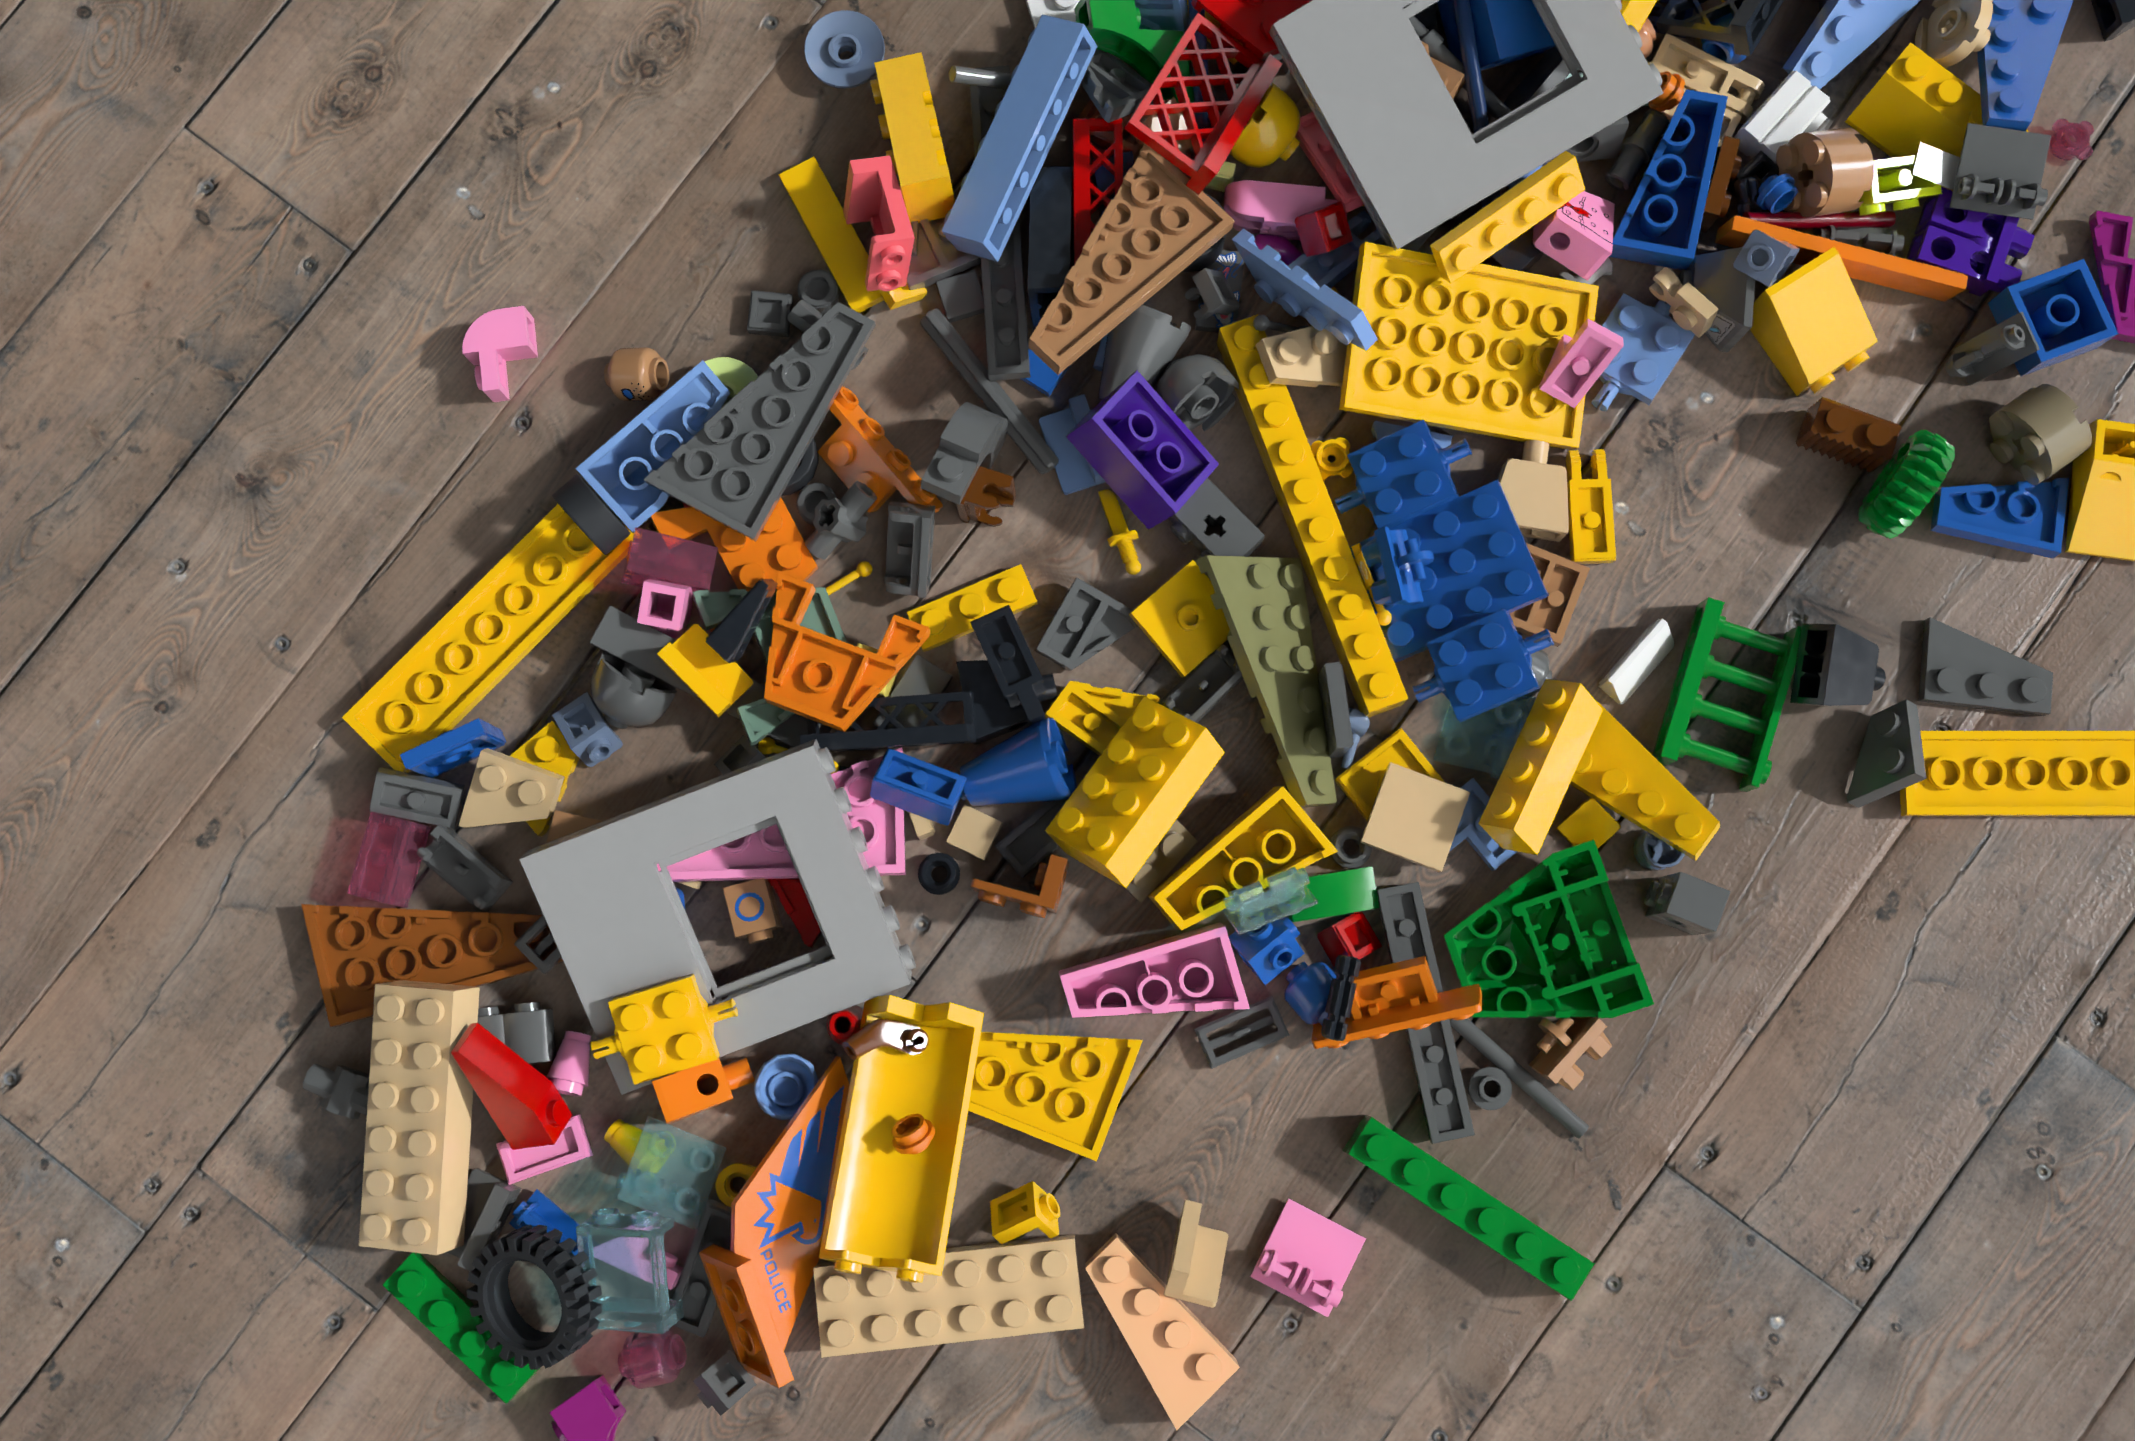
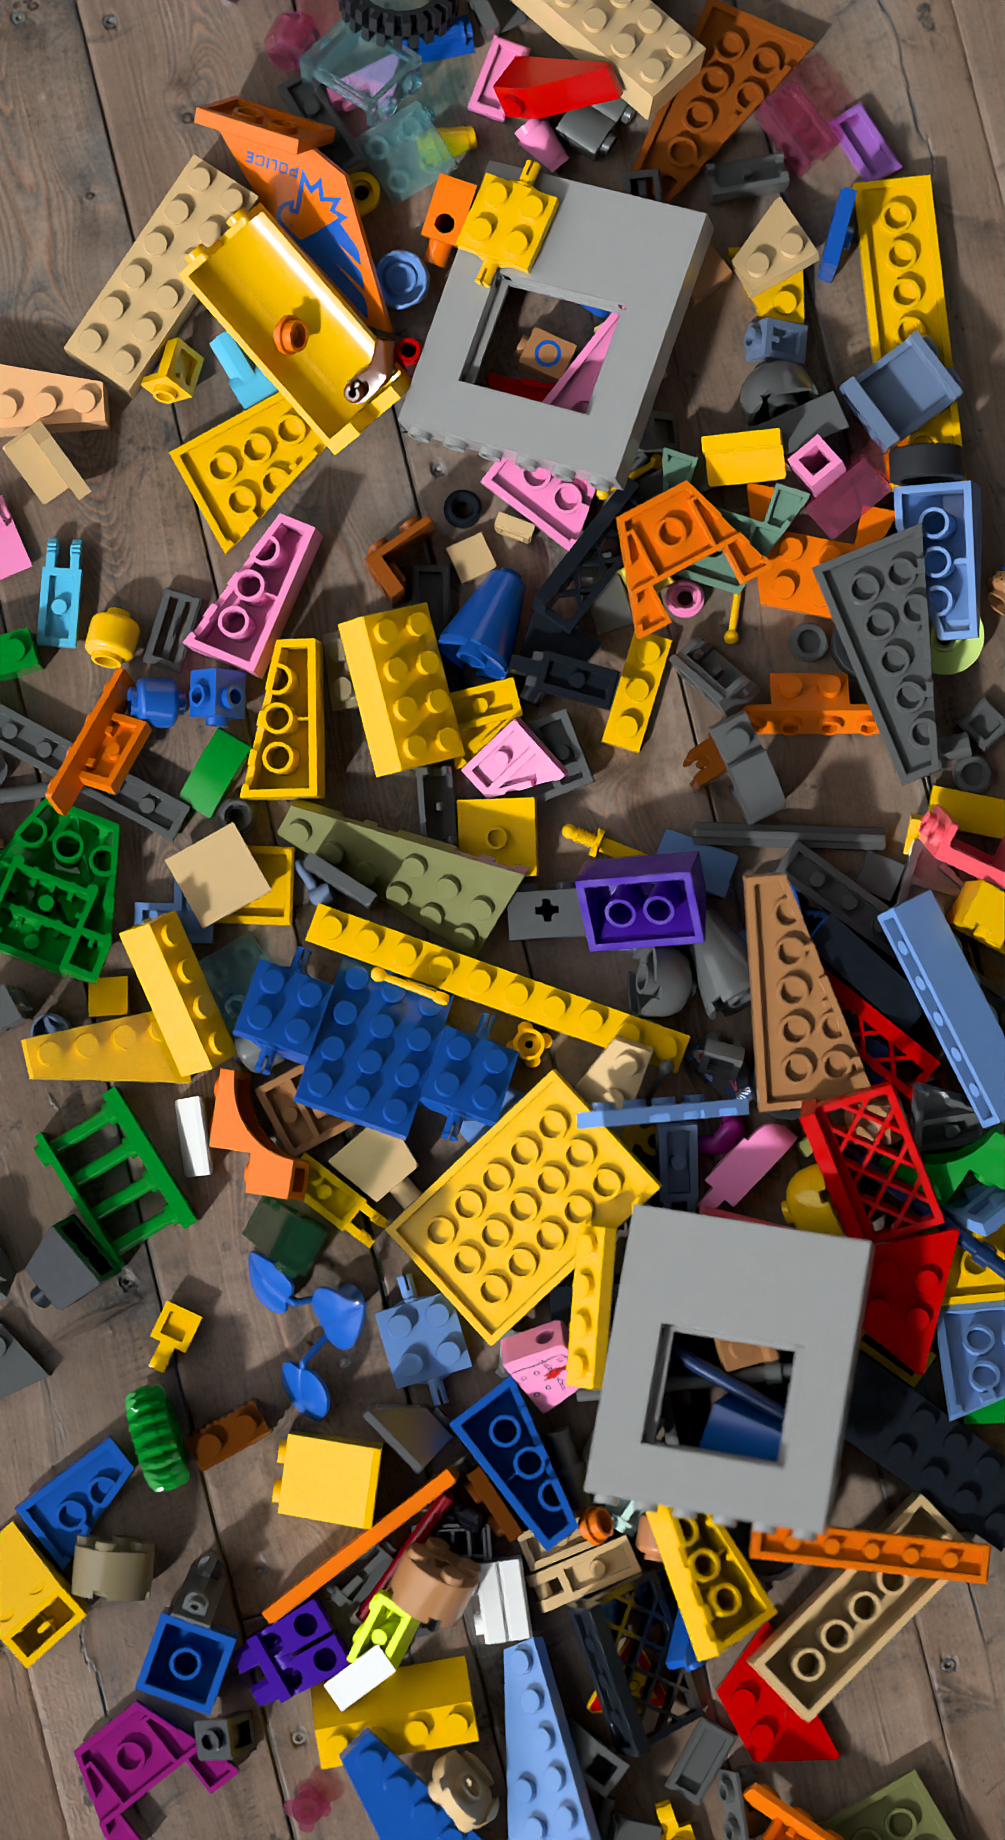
camera: 125 degrees right, 5 degrees up
(353, 798) = (864, 144): none -> medium lavender tile
(416, 797) = (823, 182): dark grey plate -> none
(545, 589) = (901, 391): none -> sand blue panel
(724, 1383) = (232, 75): dark grey tile -> none
(737, 628) = (752, 497): black slope -> none
(840, 520) = (778, 645): dark grey axle -> none
(859, 619) = (690, 587): none -> bright pink plate
(917, 786) = (533, 539): blue slope -> none
(979, 1149) = (245, 377): none -> medium azure piece
(1115, 654) = (513, 762): none -> bright pink wing
(1252, 907) = (248, 701): clear light blue hinge -> none
(1293, 1076) = (112, 638): none -> yellow head
(1295, 1150) = (60, 598): none -> medium azure hinge
(1323, 229) = (700, 1177): red slope -> none
(1340, 997) = (136, 710): black axle -> none
(1349, 937) = (172, 760): red slope -> none
(1401, 566) = (403, 1011): blue hips -> none
(1580, 362) = (443, 1274): bright pink slope -> none
(1606, 631) = (237, 1128): none -> orange arch
(1657, 510) = (286, 1236): none -> clear green wedge
(1688, 306) = (417, 1395): tan plate -> none
(1697, 400) = (340, 1313): none -> blue plant
(1765, 258) = (402, 1468): sand blue bracket -> none
(1776, 193) = (448, 1533): blue plate -> none
(1807, 547) = (174, 1330): none -> yellow plate
(2001, 171) = (324, 1712): dark grey hinge -> none
(2080, 238) = (226, 1736): none -> black bracket

